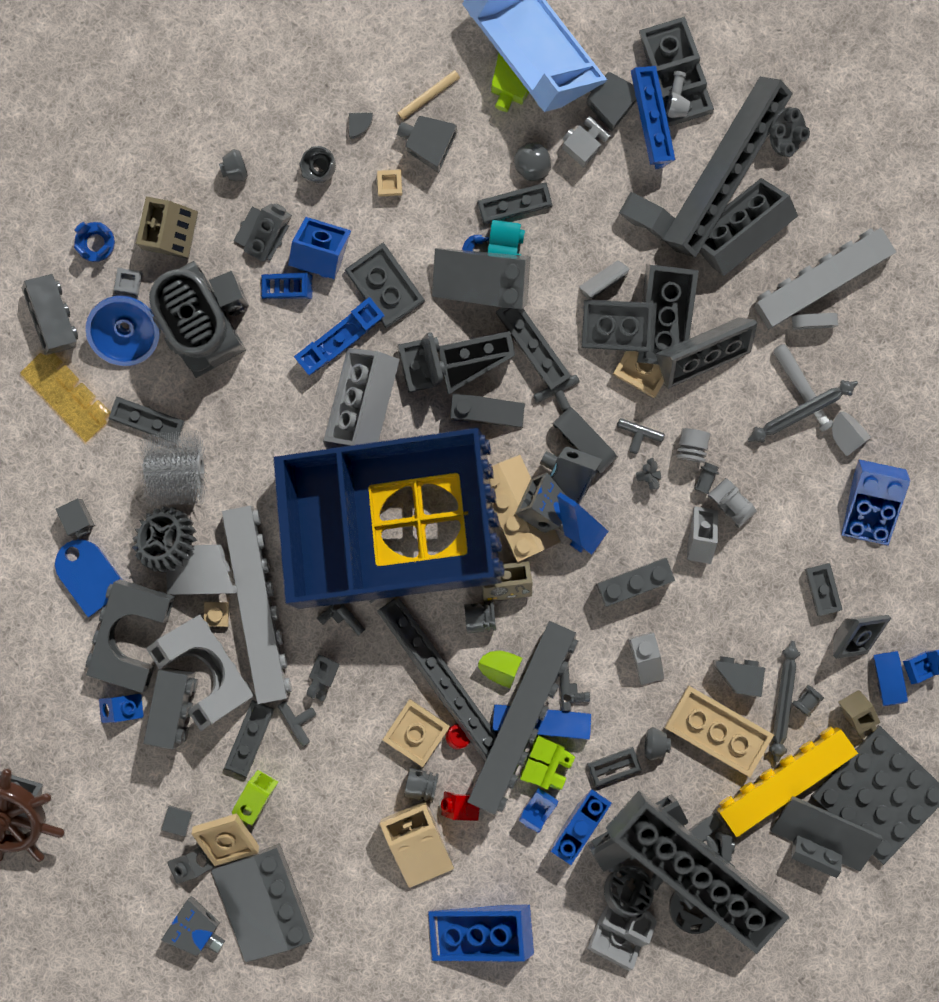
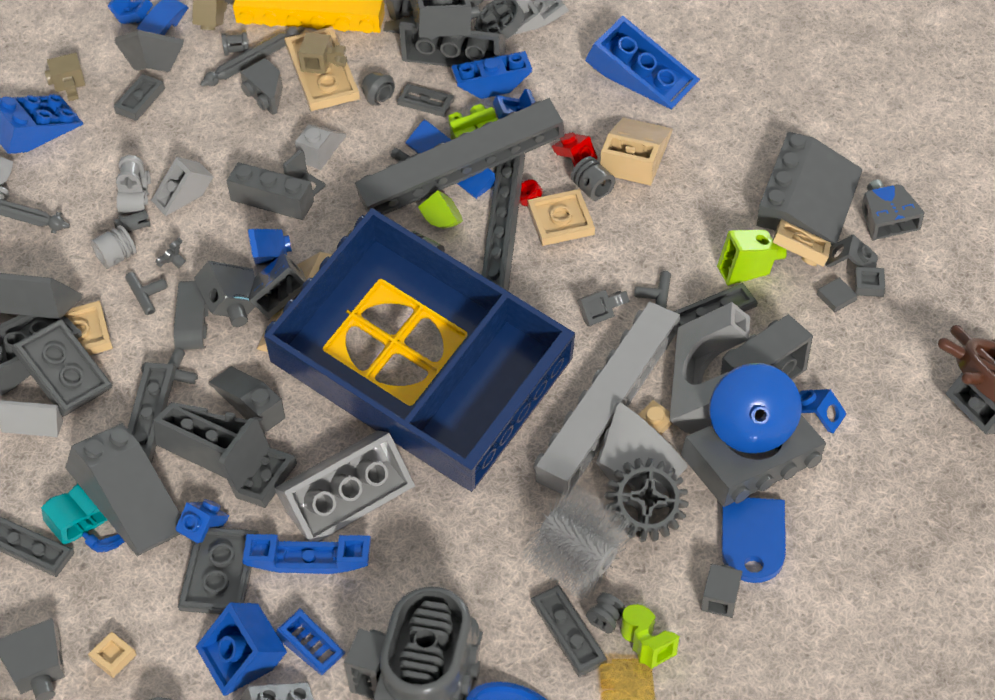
camera: 135 degrees left, 35 degrees down
(103, 454) = (638, 628): none -> lime leg
(130, 446) = (605, 612): none -> dark grey wheel
(134, 649) = (747, 391): none -> blue dish
(161, 849) = (869, 281): none -> dark grey plate
(423, 304) = (198, 518): none -> blue bracket
(635, 618) = (296, 167): none -> dark grey bracket
(725, 733) = (317, 53): none -> dark tan brick
(899, 563) = (65, 74): none -> dark tan brick

